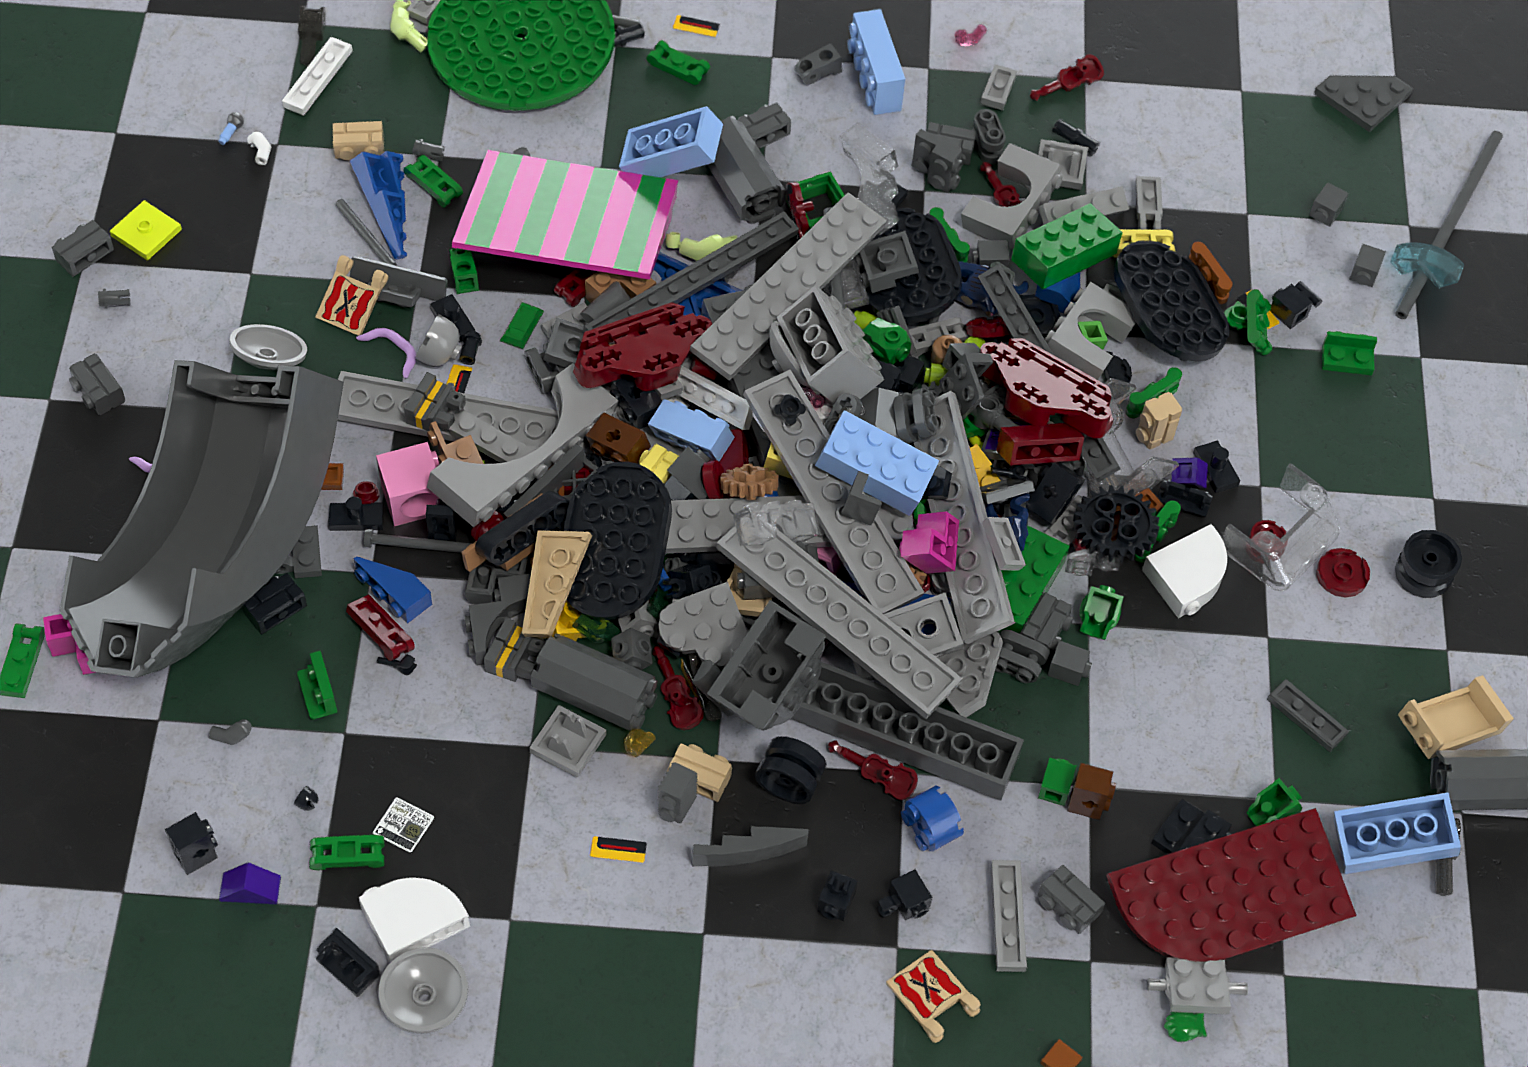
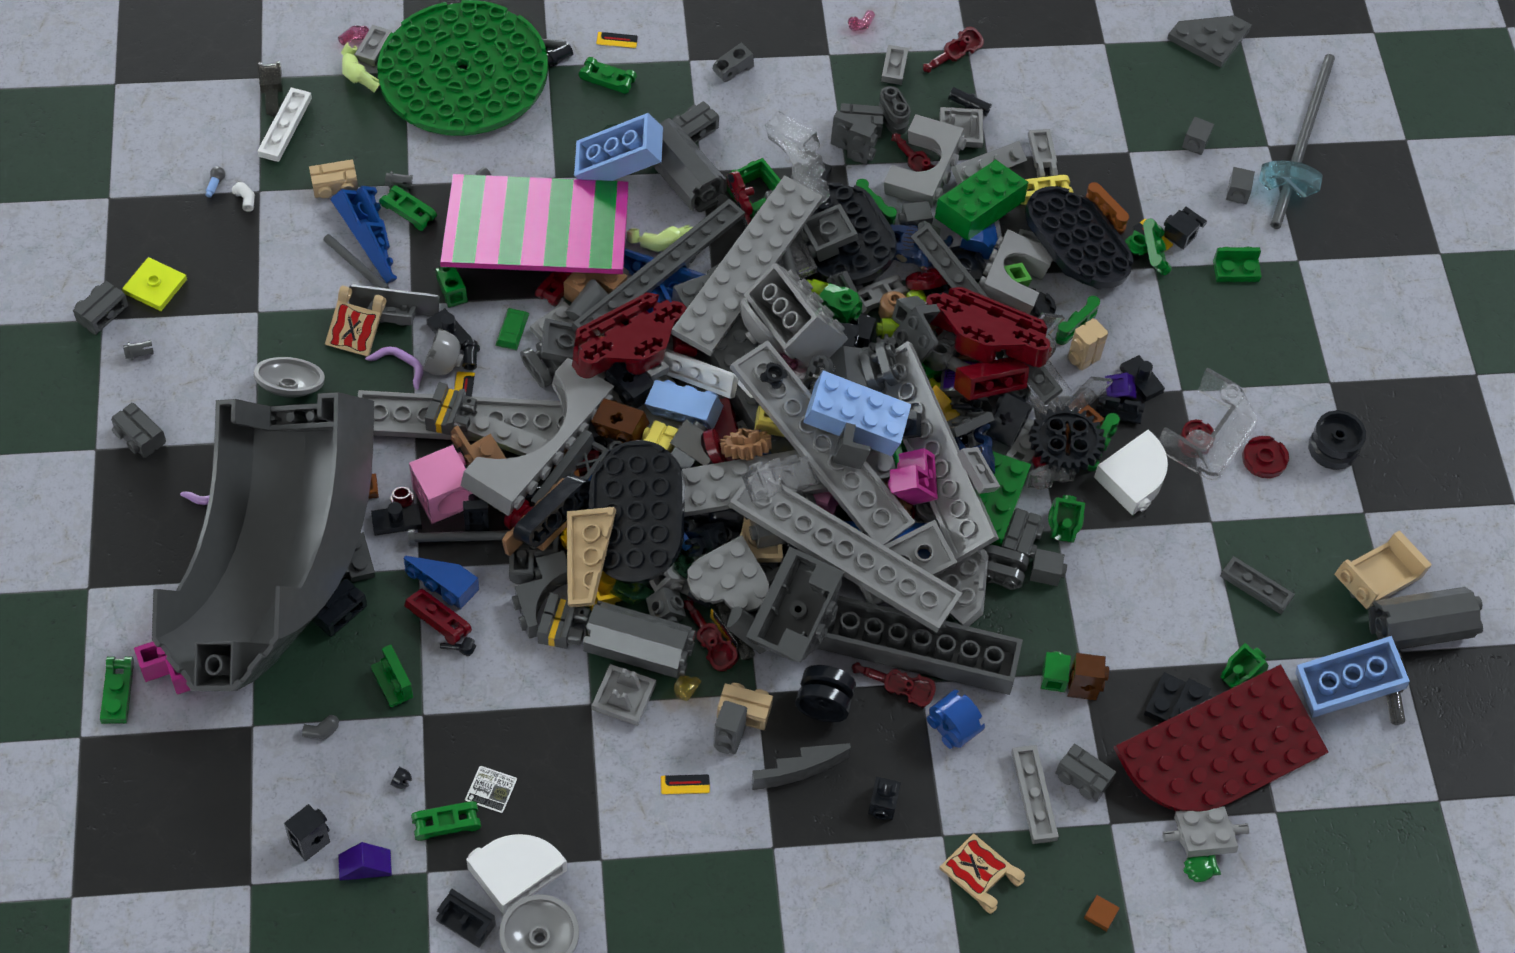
camera: 10 degrees left, 0 degrees up
(876, 62) = (785, 54): light blue brick -> none
(908, 896) = (945, 789): black brick -> none

